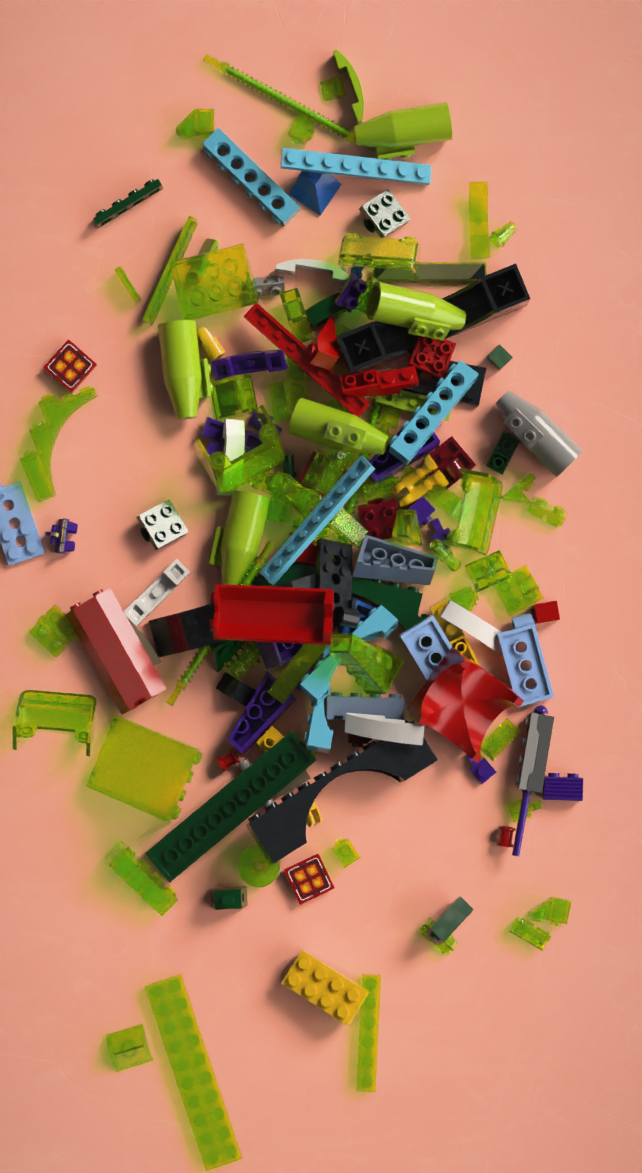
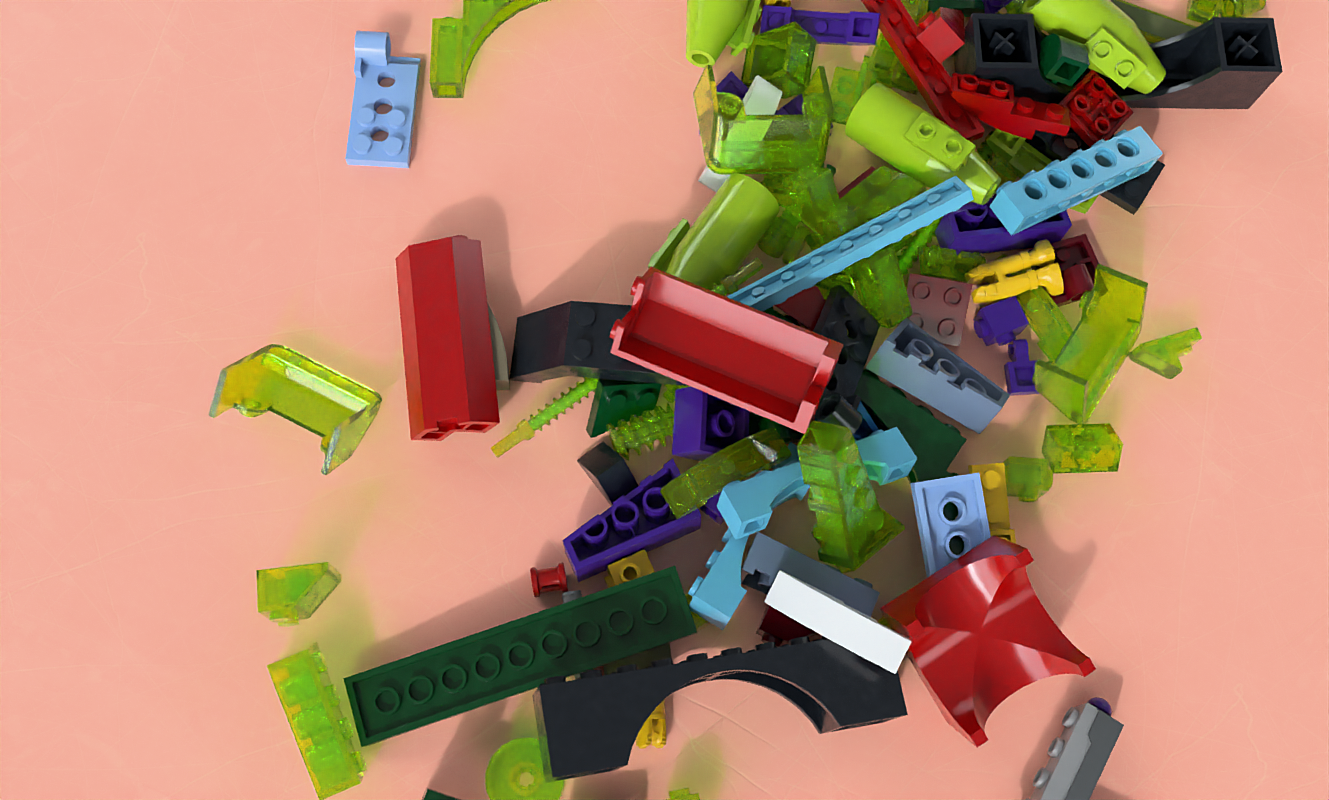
camera: 10 degrees right, 15 degrees down
(54, 631) = (366, 275): clear neon green bracket -> none
(62, 544) = (455, 139): dark purple hips -> none
(100, 822) = (294, 591): none -> clear neon green slope
(144, 768) = (408, 534): clear neon green windscreen -> none
(156, 592) = (549, 283): white slope -> none
(161, 525) = (598, 189): plate -> none
(398, 343) = (1062, 59): none -> dark green brick
(407, 529) = (974, 334): clear neon green slope -> none
(445, 555) = (1021, 397): clear neon green pin -> none
(472, 625) = (1037, 523): white slope -> none
(482, 769) = (964, 767): dark purple plate -> none
(499, 357) = (1186, 160): dark green slope -> none
(500, 739) = (1016, 728): clear neon green slope -> none
(503, 453) = (1162, 284): dark green slope -> none
(518, 591) = (1119, 500): clear neon green plate -> none
(525, 632) = (1116, 564): light blue hinge -> none
(538, 433) = (1226, 277): light grey piece -> none
(541, 507) = (1209, 407): clear neon green hinge -> none
(545, 612) = (1154, 549): red brick -> none

